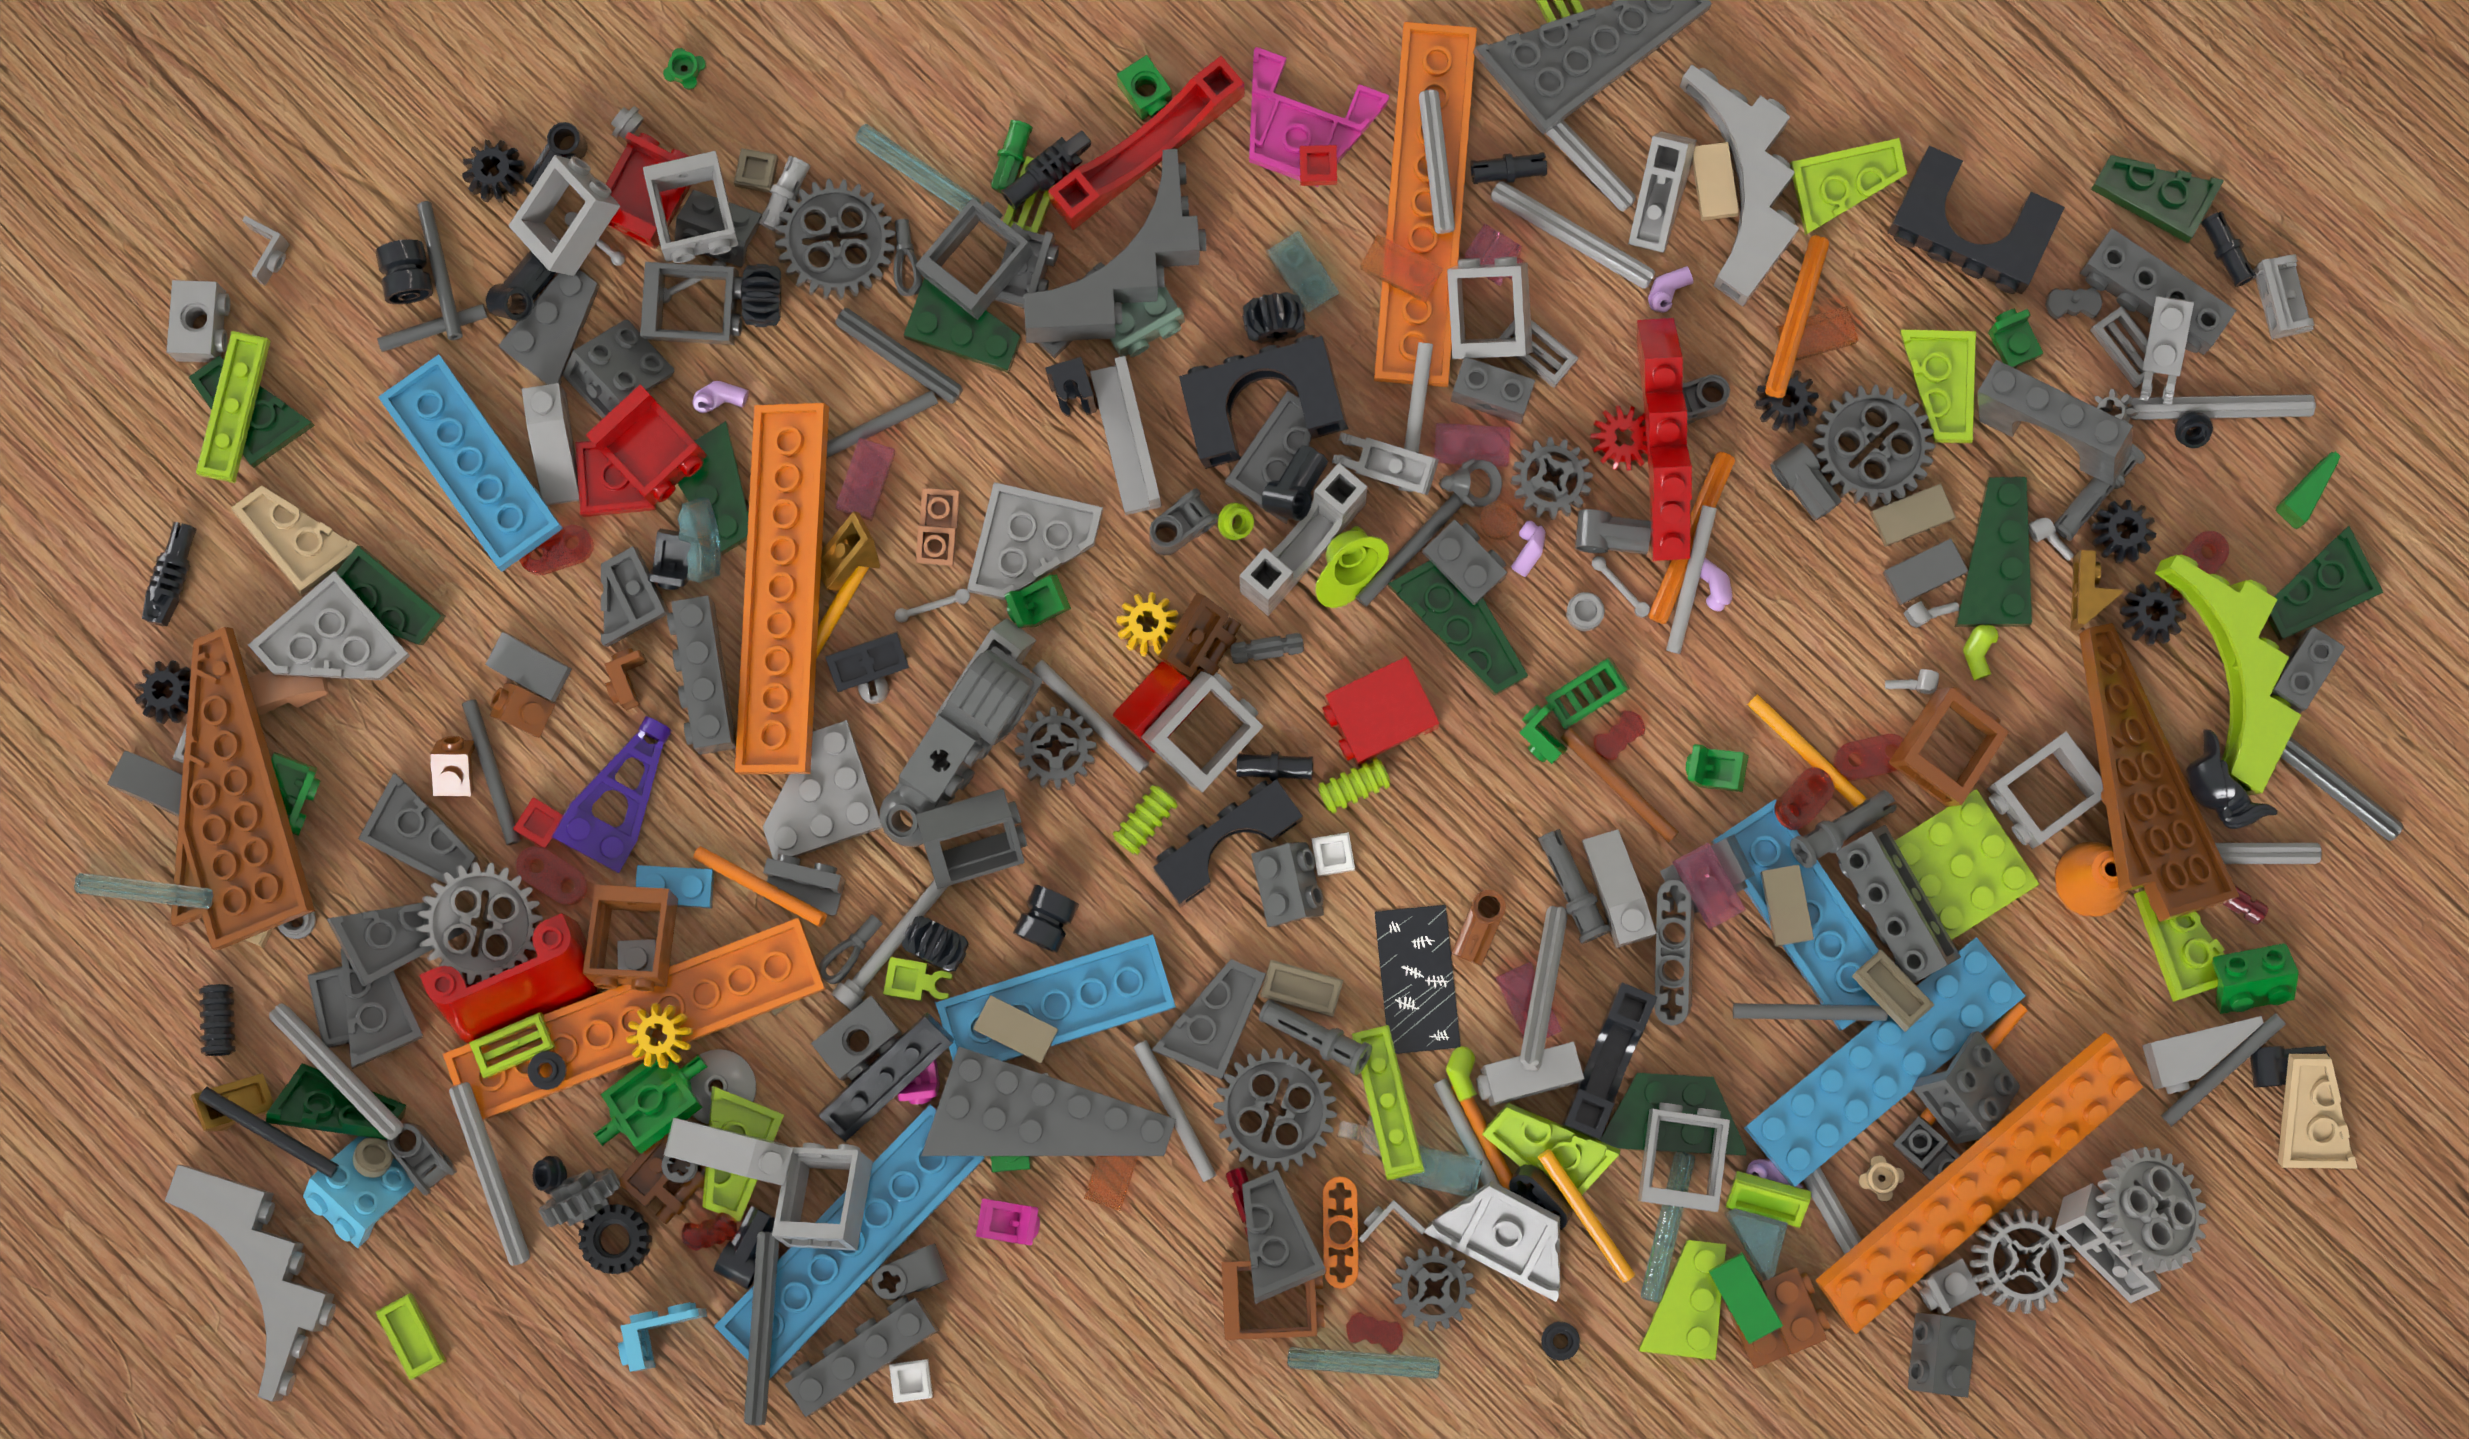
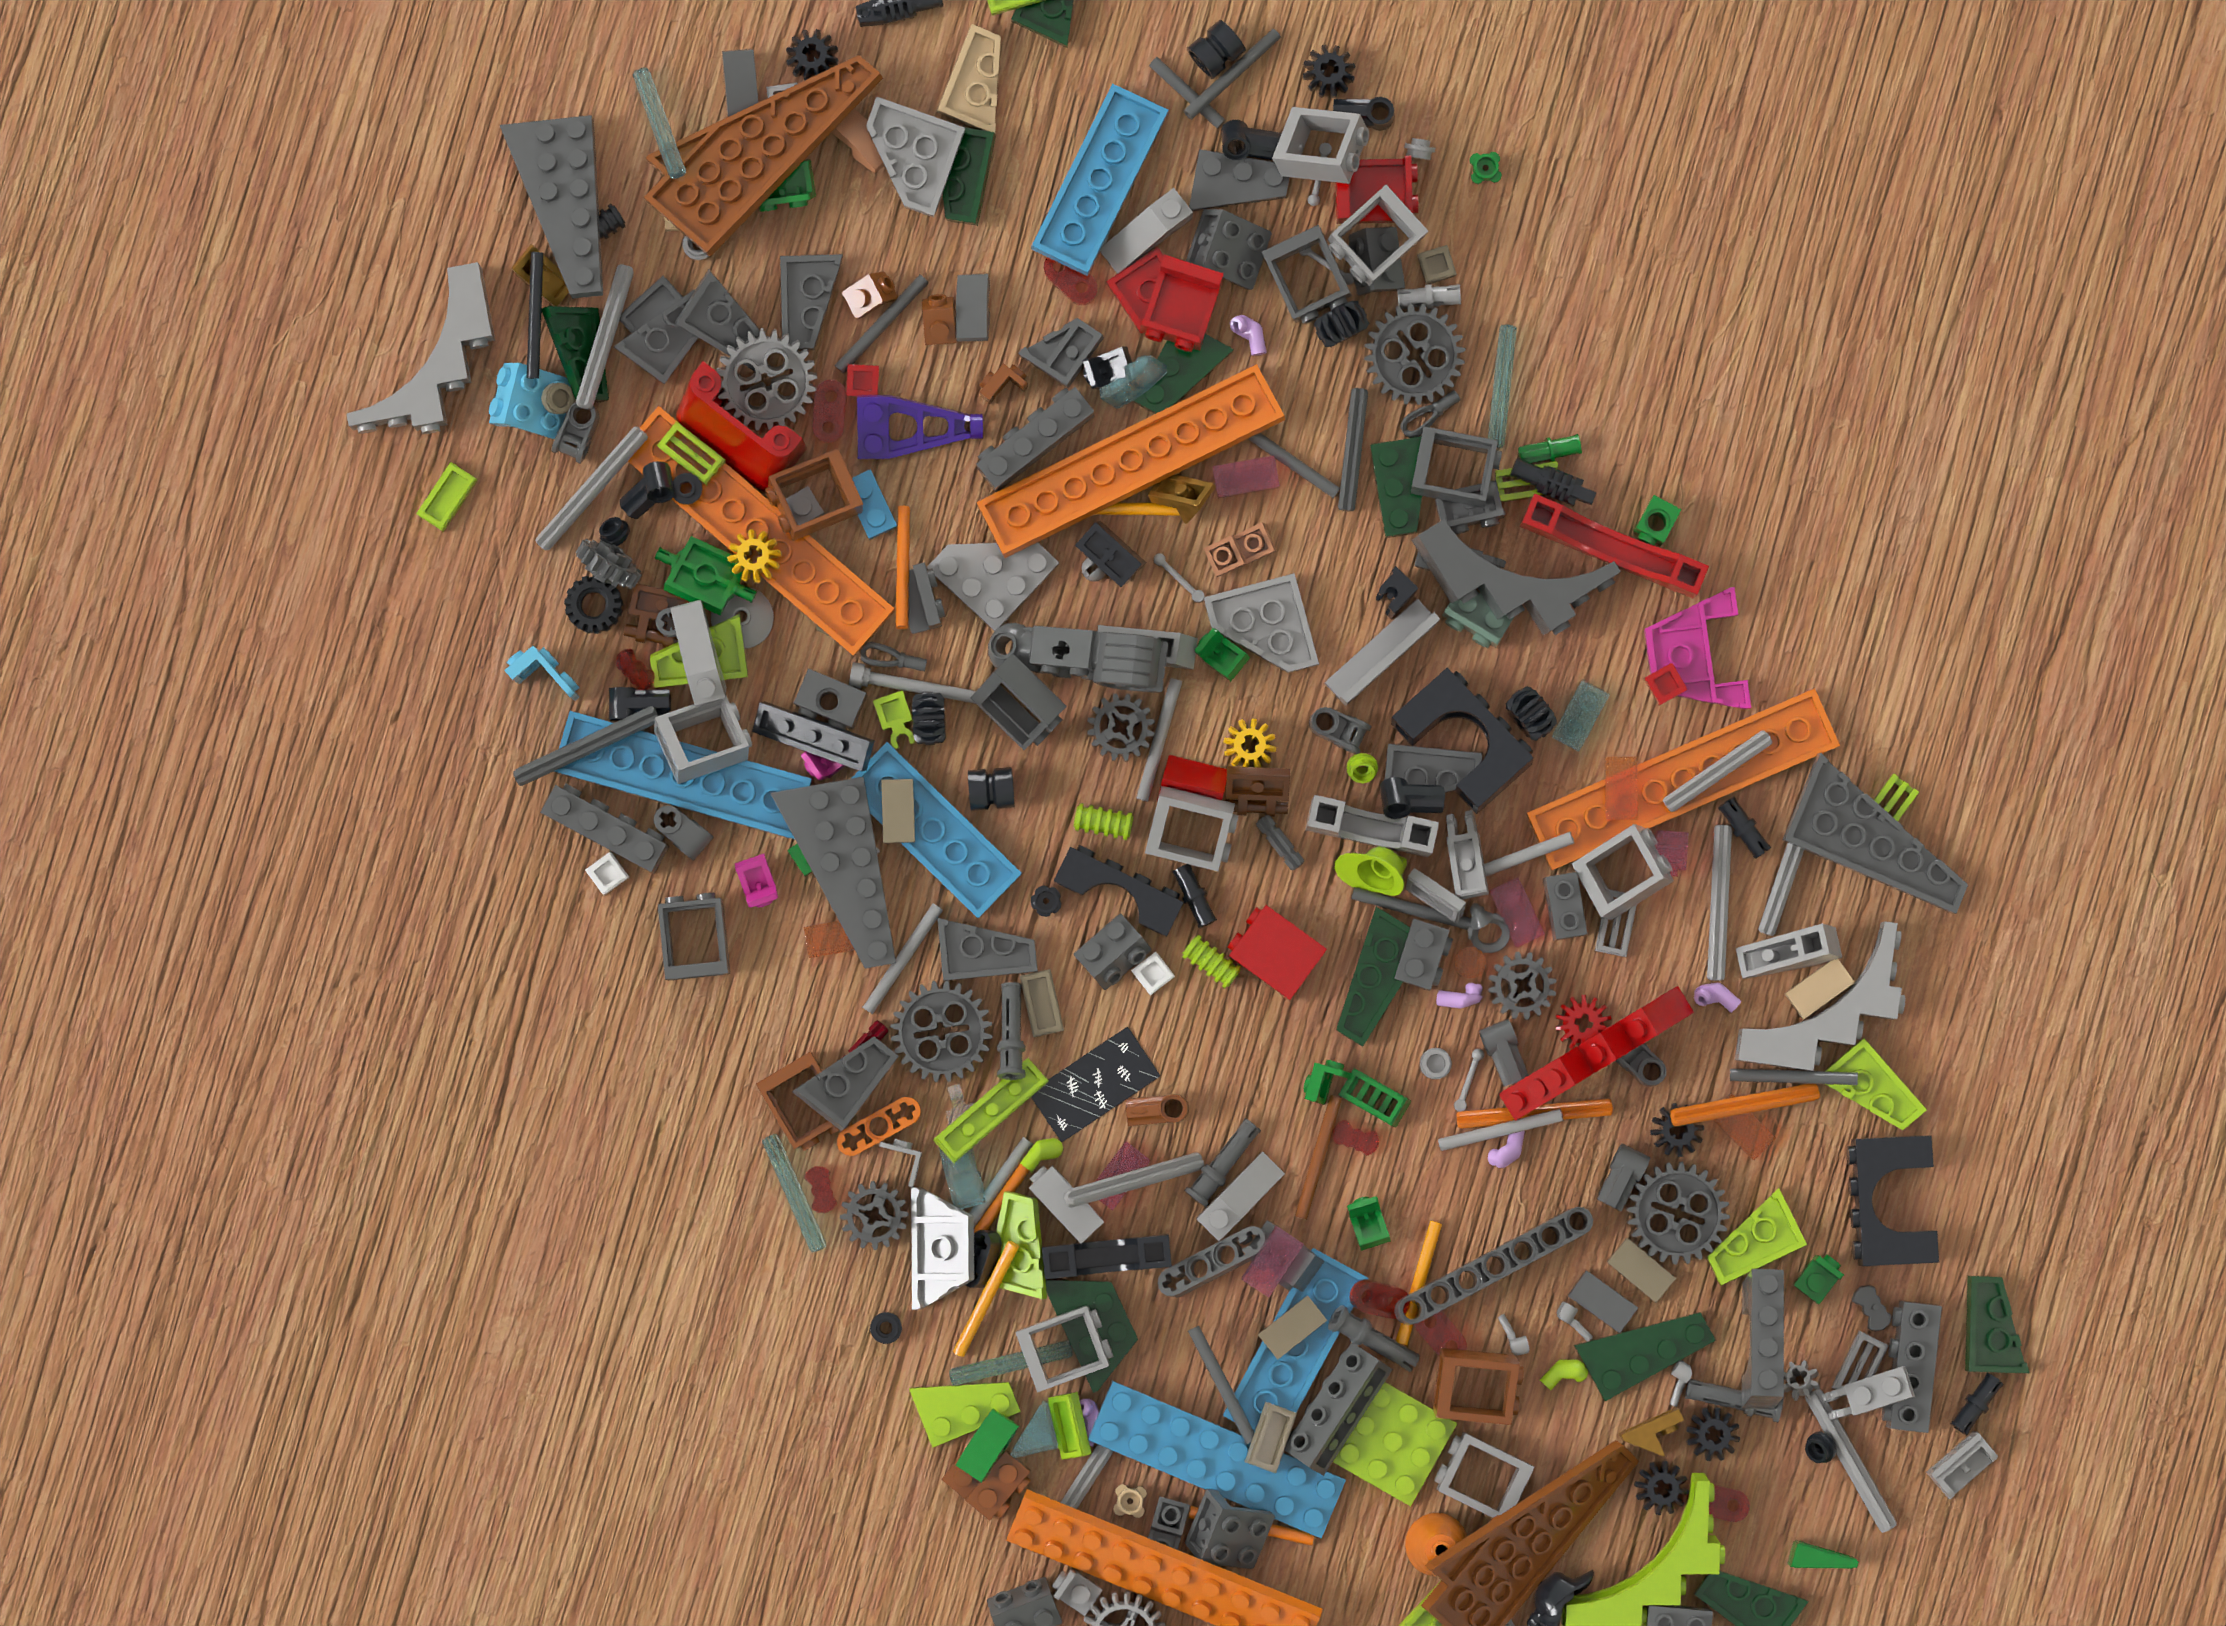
camera: 60 degrees right, 5 degrees up
(143, 1028) = (561, 180): none -> dark grey wing
(526, 1106) = (653, 488): none -> black piece
(985, 1322) = (677, 904): none -> dark grey window
(1192, 915) = (1054, 901): none -> black plate
(1410, 515) = (1435, 895): none -> light grey tile
(1793, 253) = (1791, 1076): none -> dark grey piece
(1826, 678) = (1507, 1258): none -> dark grey beam

